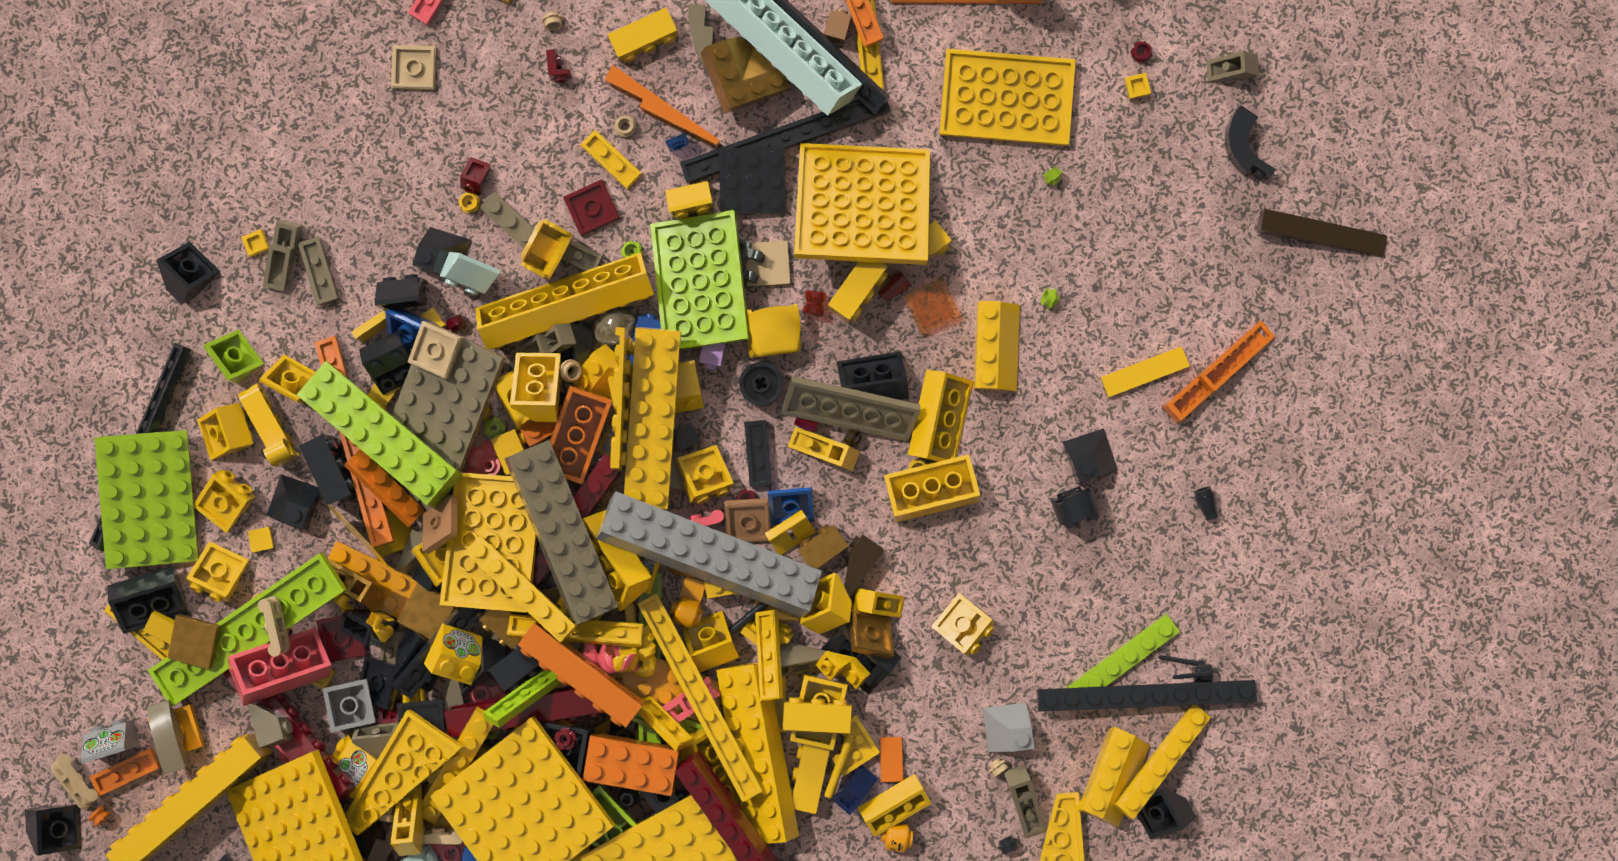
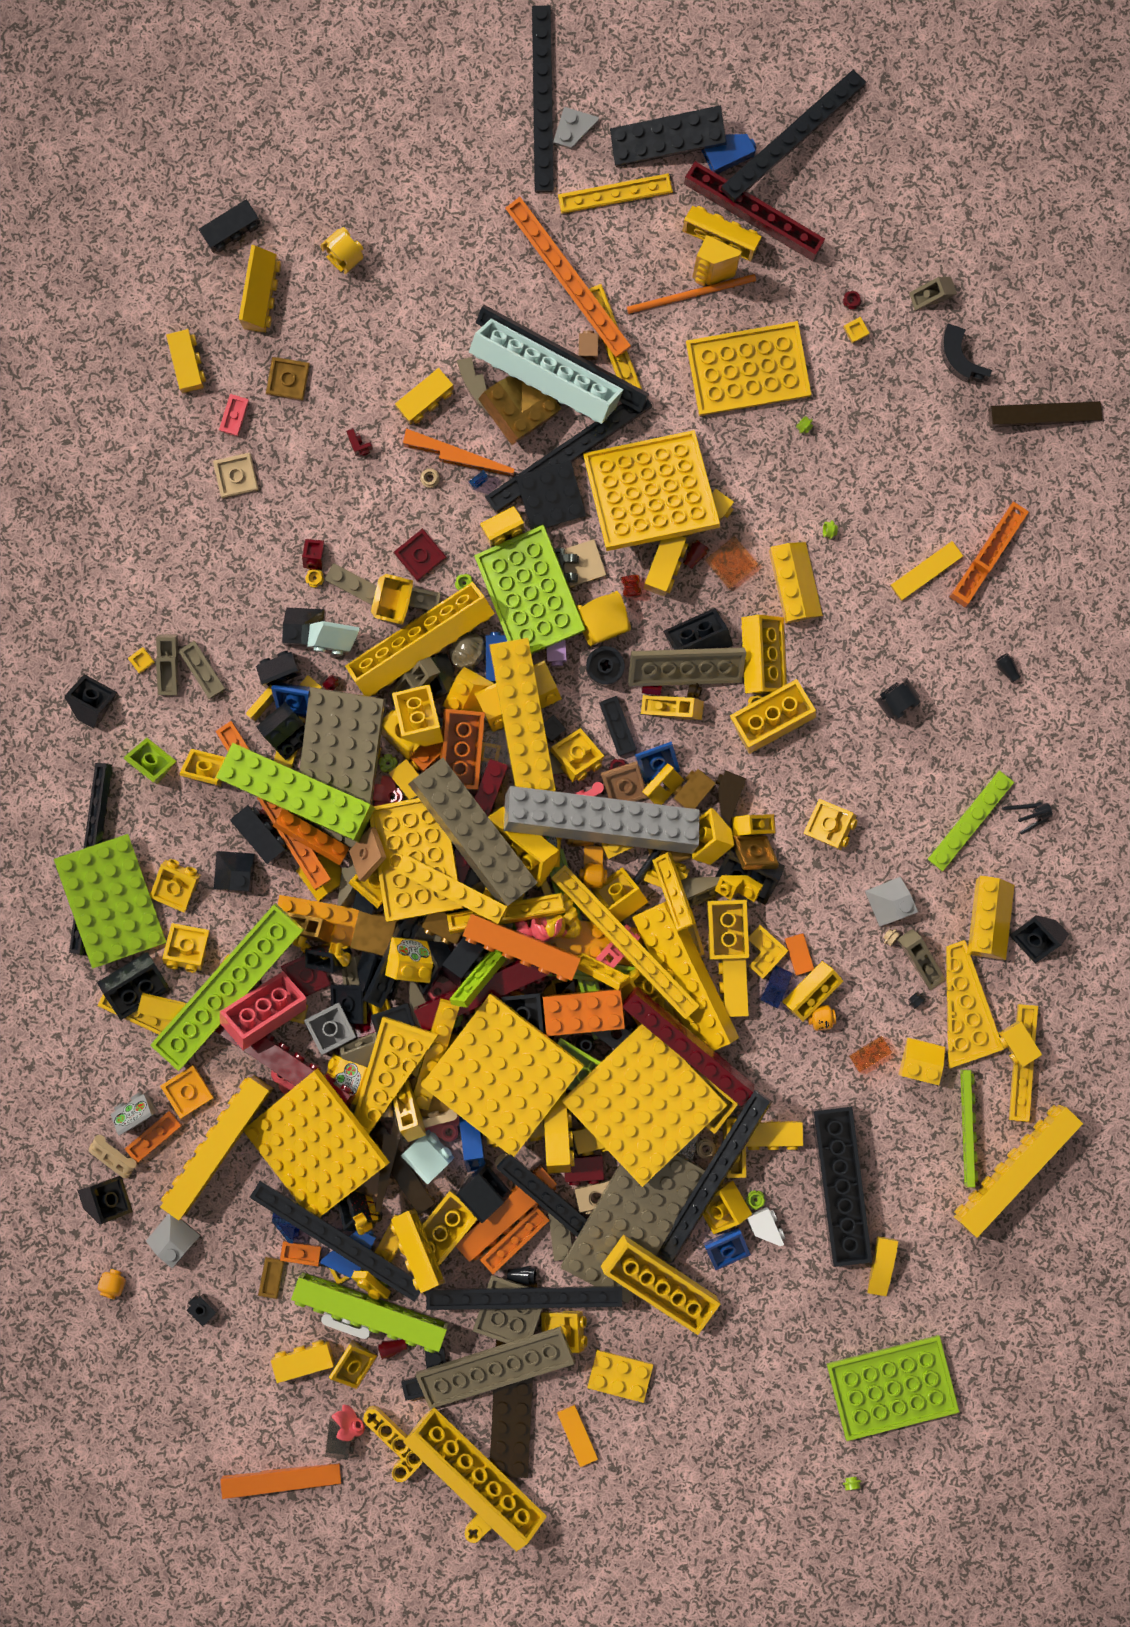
camera: 15 degrees left, 0 degrees up
(99, 816) = (141, 1180): orange bush -> none
(167, 737) = (183, 1096): dark tan slope -> none
(193, 641) = (184, 1008): pearl gold tile -> none
(225, 431) = (159, 826): yellow slope -> none
(261, 539) = (214, 910): yellow tile -> none
(269, 726) = (270, 1062): dark tan slope -> none
(275, 625) = (252, 975): tan plate -> none
(278, 445) = (198, 815): yellow beam -> none
(357, 535) = (299, 882): yellow sticker -> none
(435, 349) = (324, 708): tan tile -> none
(551, 18) = (342, 402): tan plate -> none
(571, 739) = (522, 1010): dark red plate -> none
(575, 372) = (446, 696): tan plate -> none
(611, 159) = (425, 509): yellow tile -> none
(621, 393) = (493, 702): yellow wing -> none
(817, 715) = (728, 931): yellow brick -> none
(839, 765) = (757, 970): yellow bar -> none
(1090, 455) = (899, 654): black slope -> none
(1146, 695) = (1000, 843): black plate -> none
(1162, 761) = (1028, 894): yellow plate -> none

